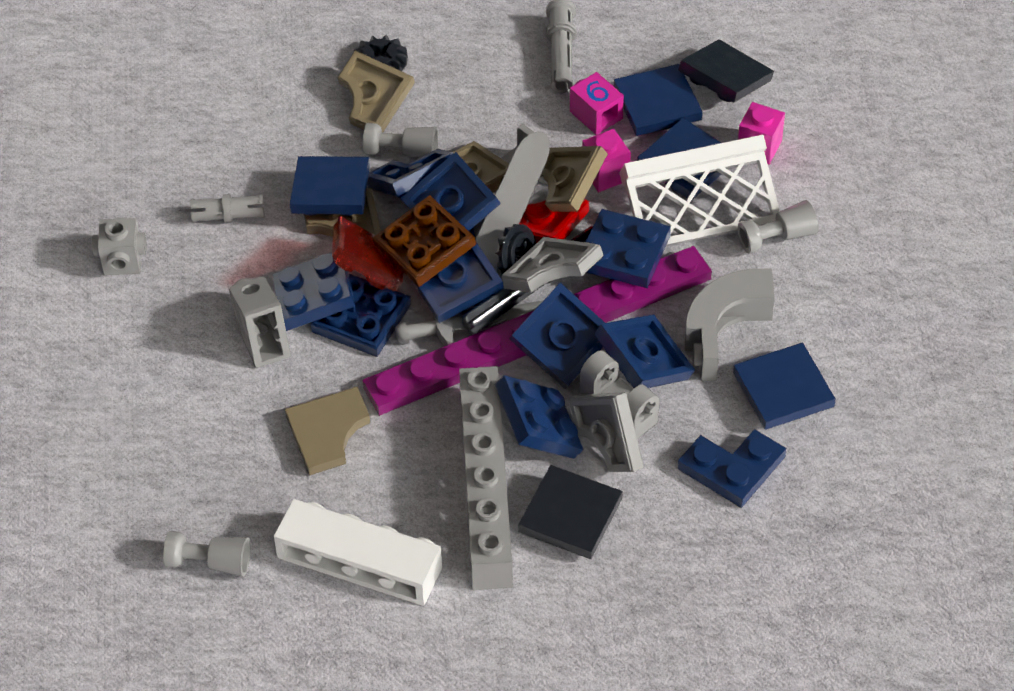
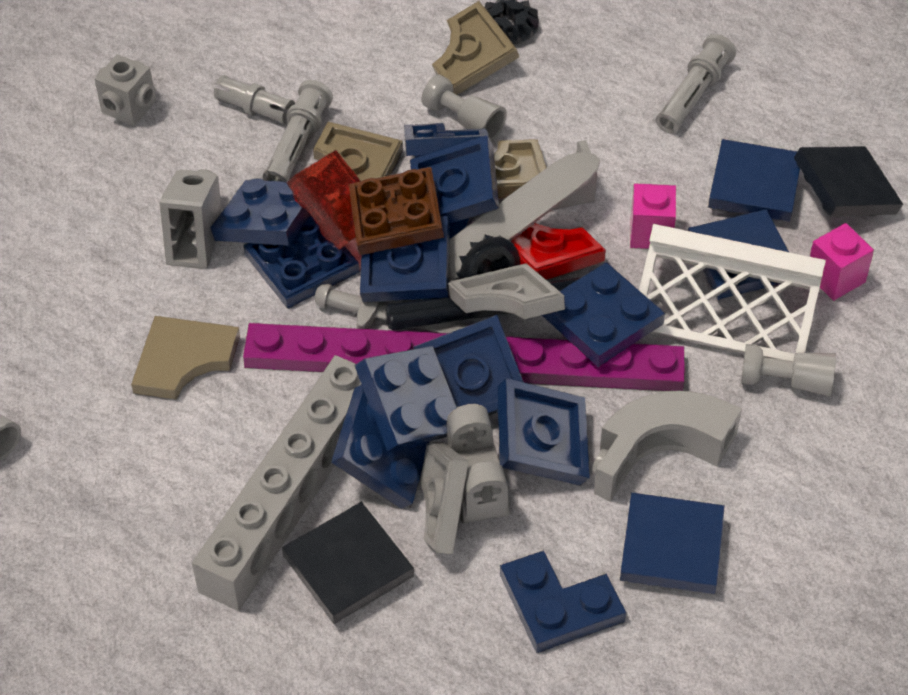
camera: 30 degrees right, 0 degrees up
(278, 191) = (302, 120): none -> light grey pin
(329, 185) = (357, 118): dark blue tile -> none
(358, 551) = (111, 493): white brick -> none
(540, 371) = (407, 396): none -> plate
(570, 175) = (595, 212): dark tan tile -> none
(596, 103) = (687, 155): dark pink brick -> none

